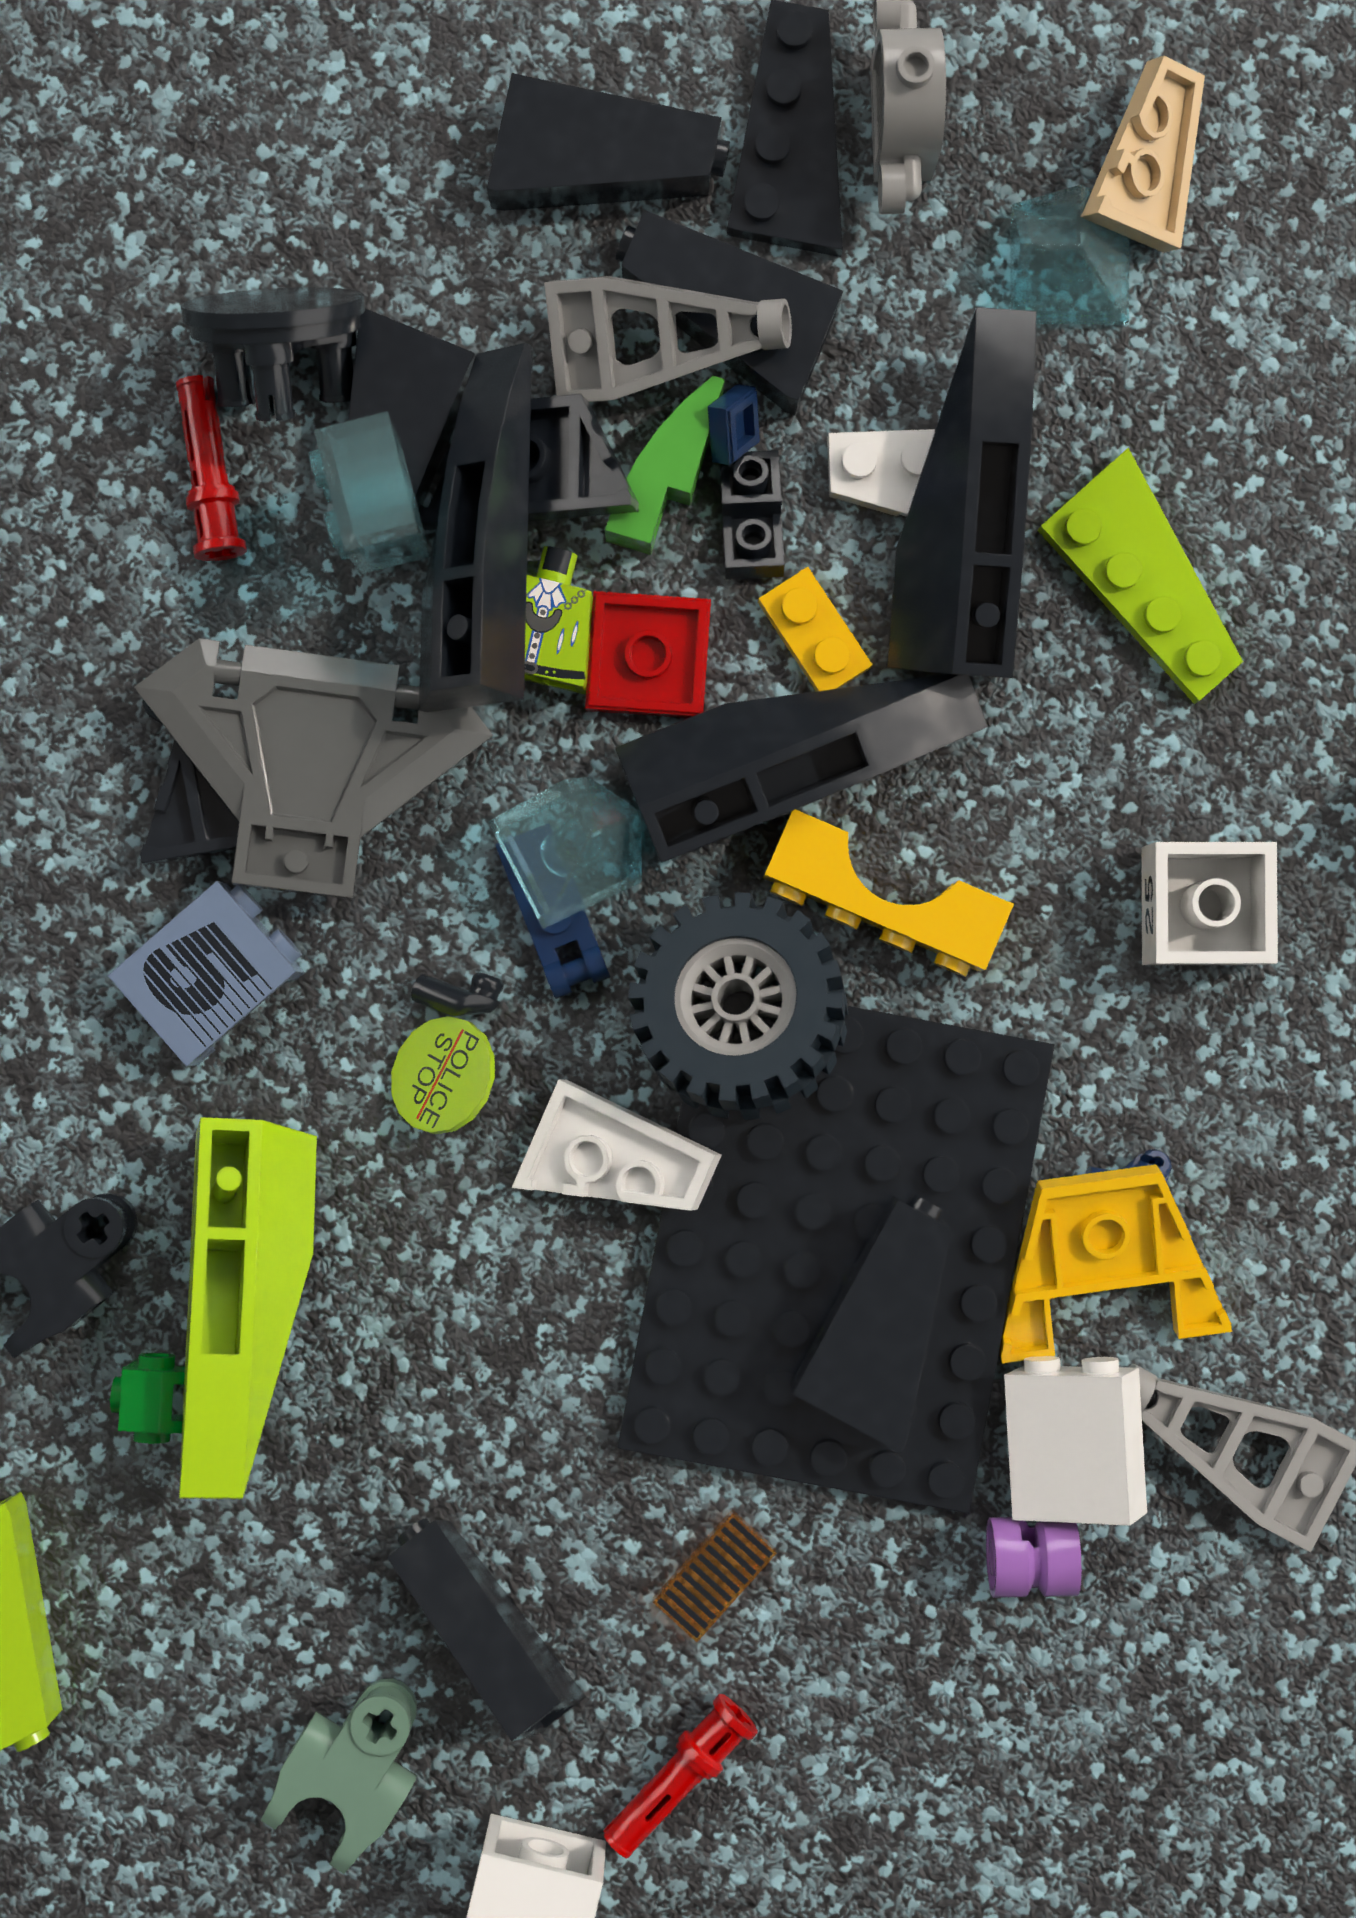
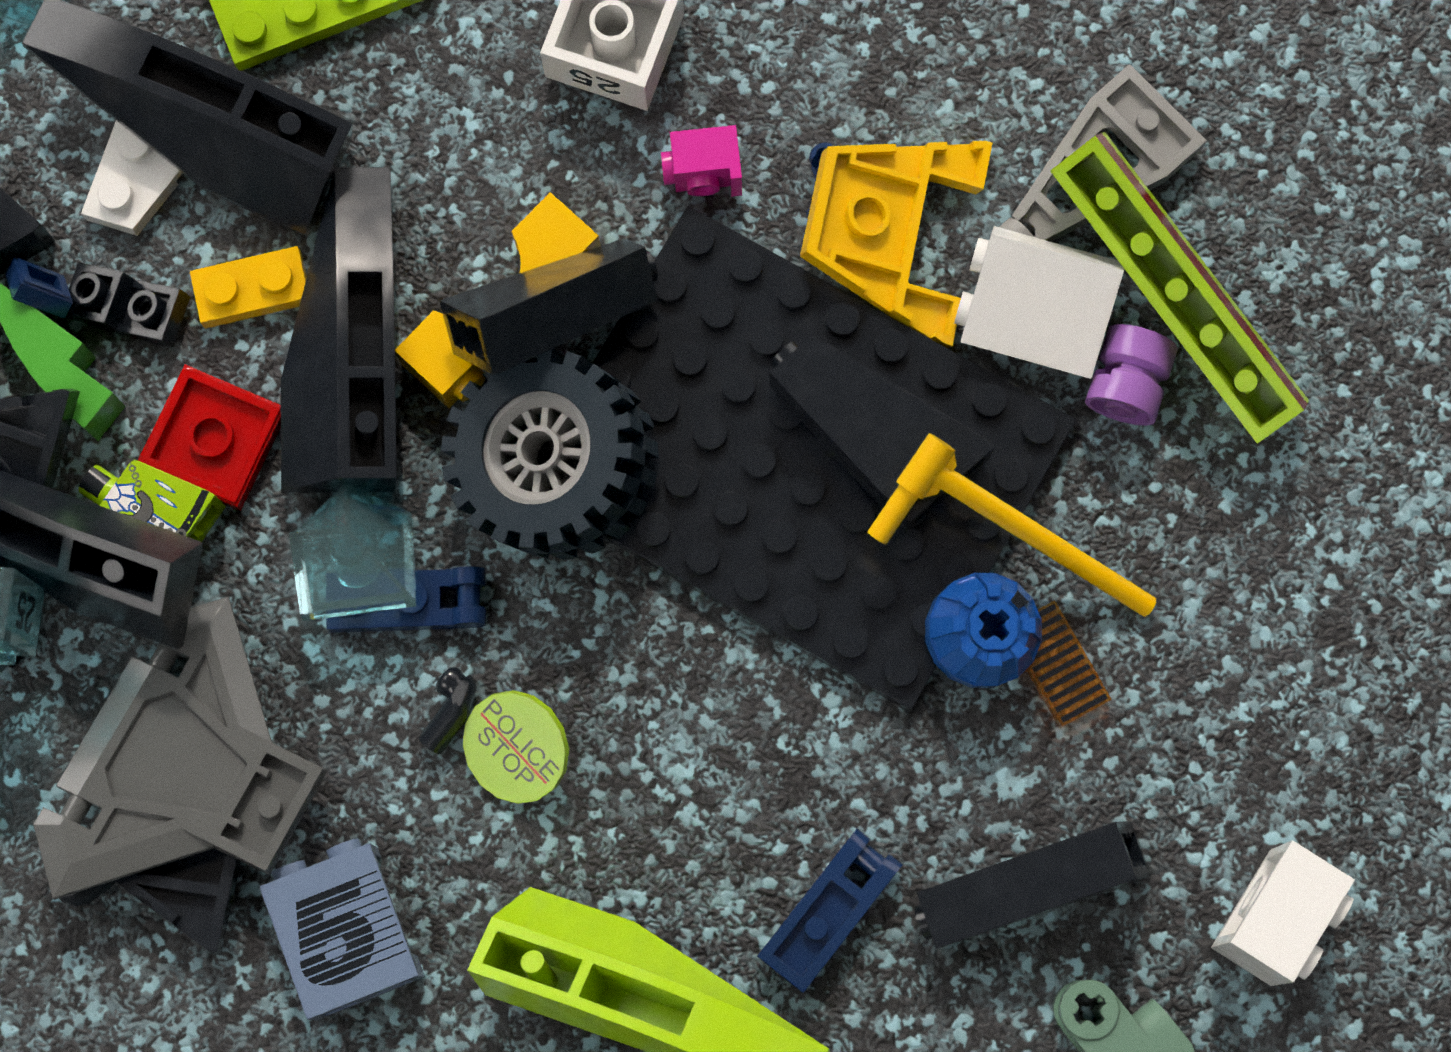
camera: 60 degrees left, 10 degrees down
(391, 1435) = (827, 913): none -> dark blue plate
(612, 1153) = (642, 618): white wing -> none
(697, 1758) = (1217, 735): red pin -> none
(717, 1496) = (983, 630): none -> blue piece
(852, 1405) = (933, 471): none -> yellow bar
(887, 952) = (548, 305): none -> black slope
(1105, 1044) = (703, 161): none -> dark pink brick
(1138, 1582) = (1180, 287): none -> lime brick

